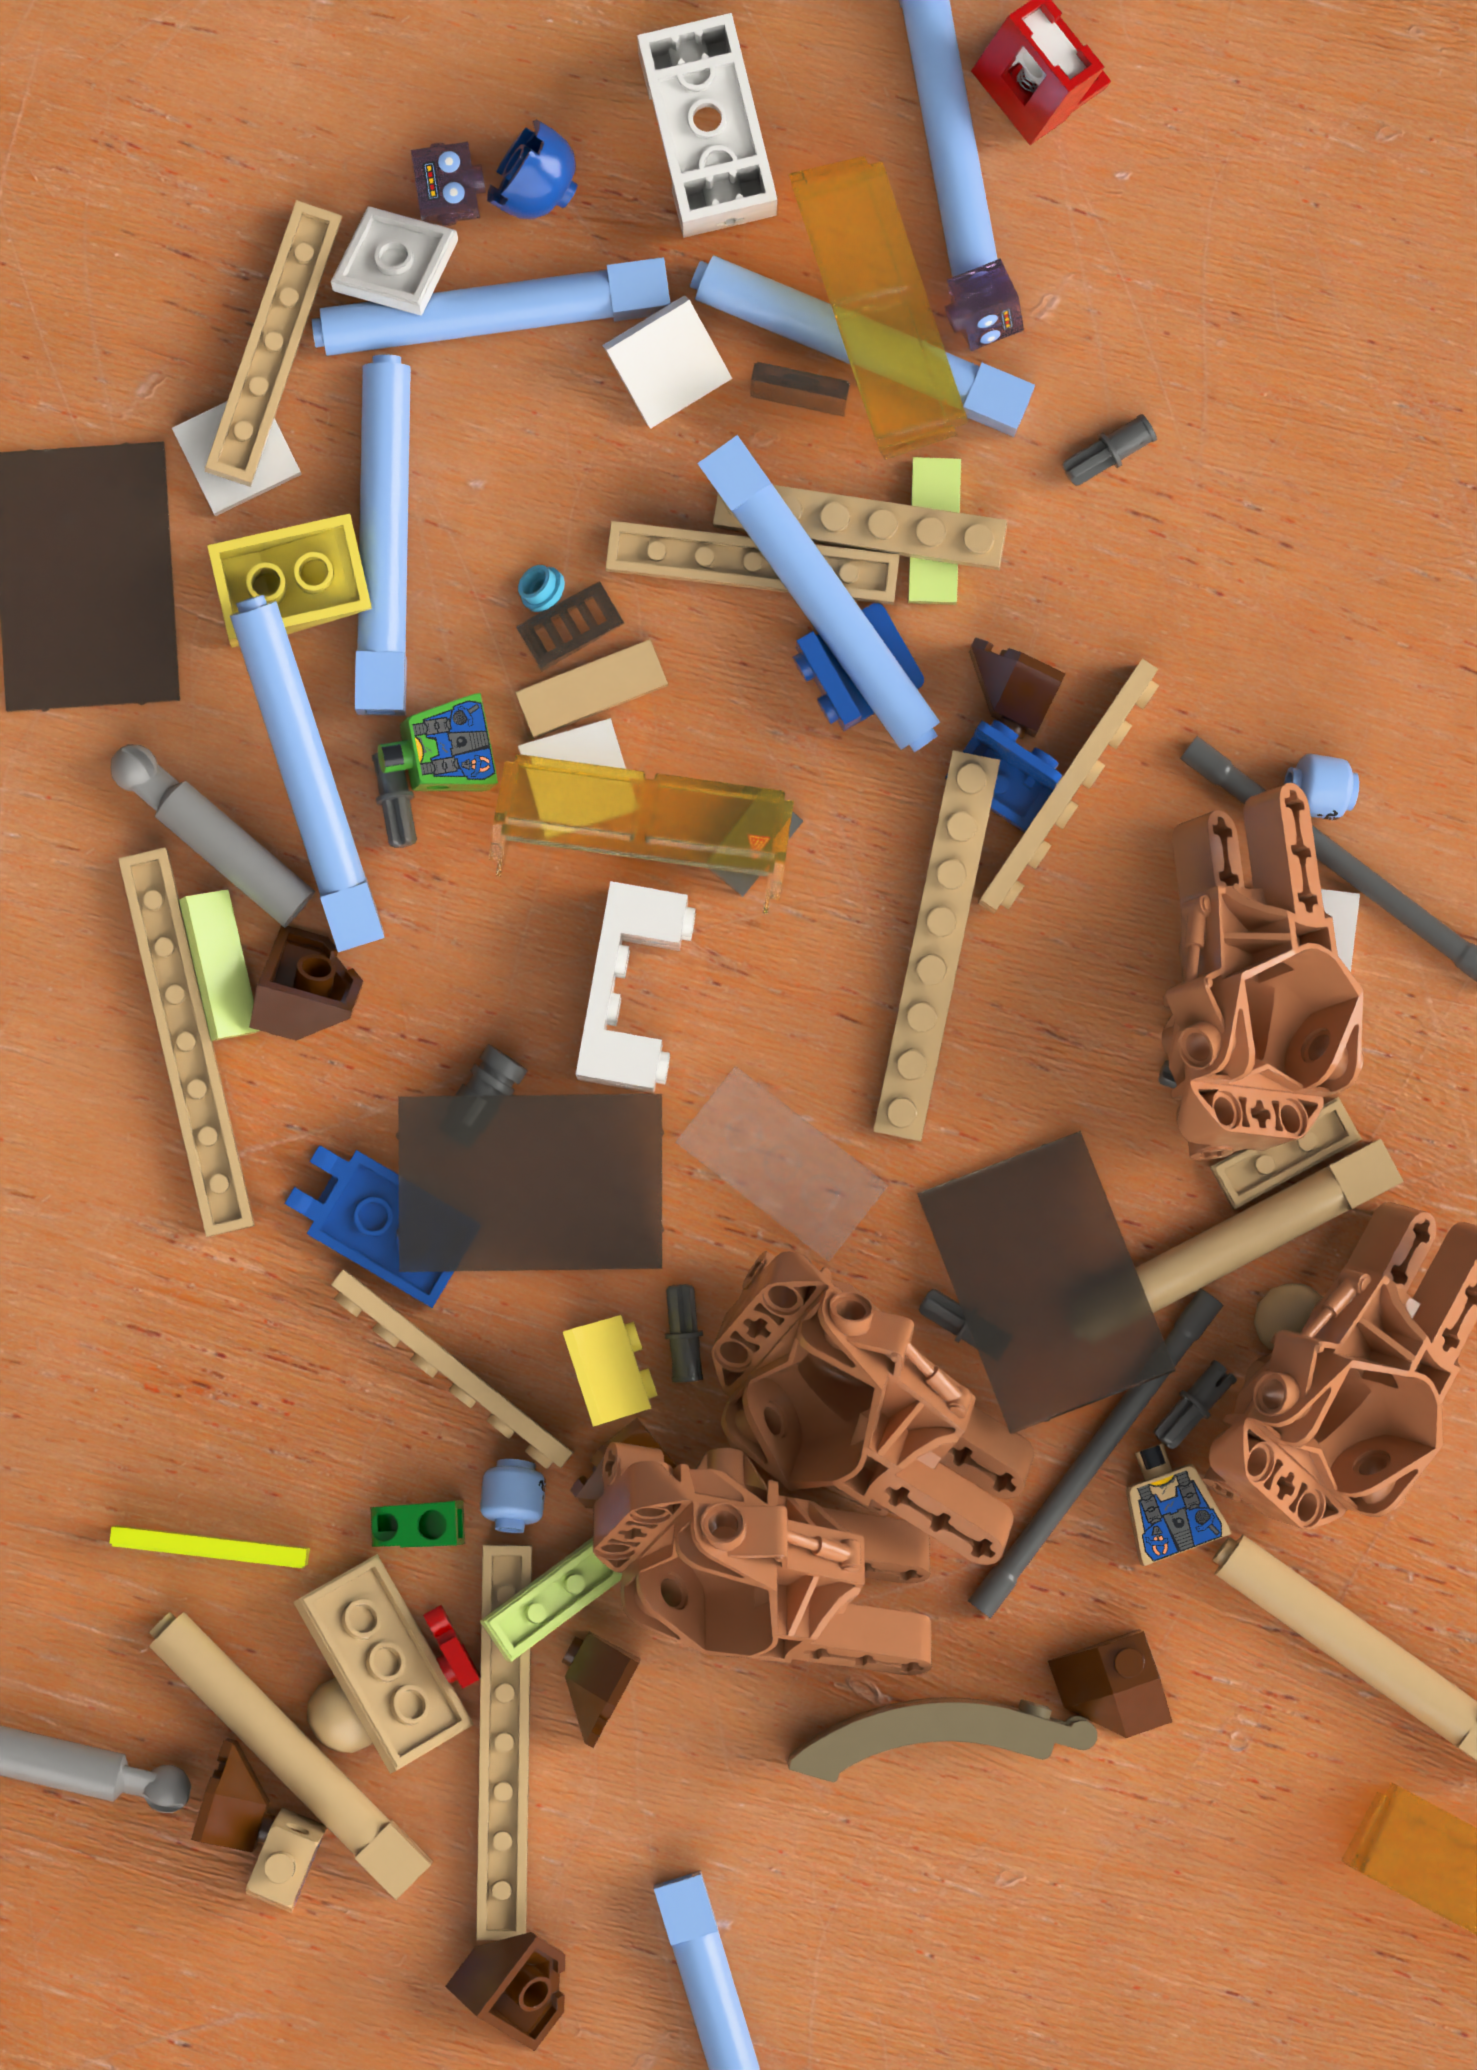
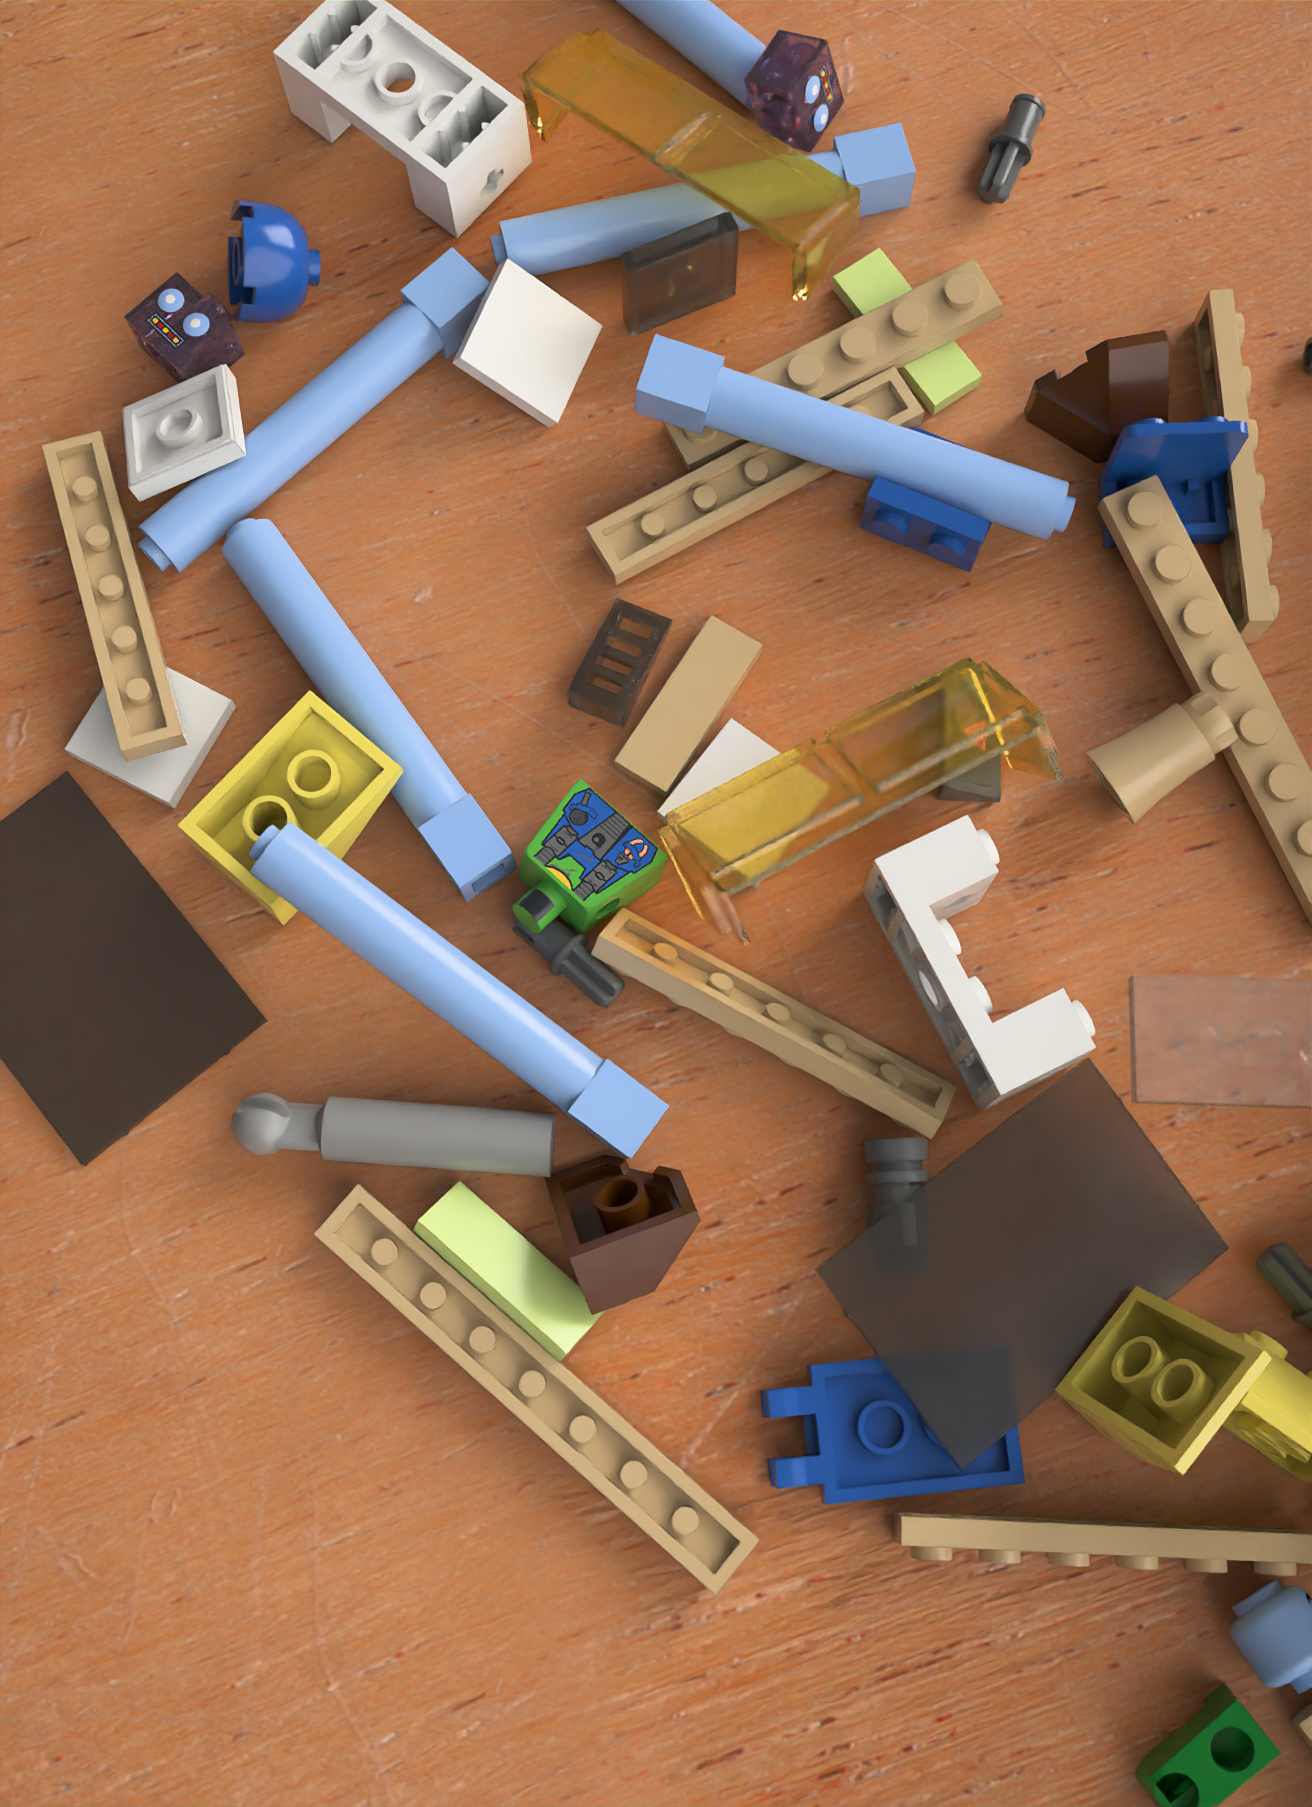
camera: 30 degrees left, 10 degrees down
(489, 931) = (775, 1022): none -> tan plate
(541, 587) = (563, 641): medium azure plate -> none
(543, 1295) = (1161, 1380): none -> light yellow slope
(853, 942) = (1161, 753): none -> tan plant

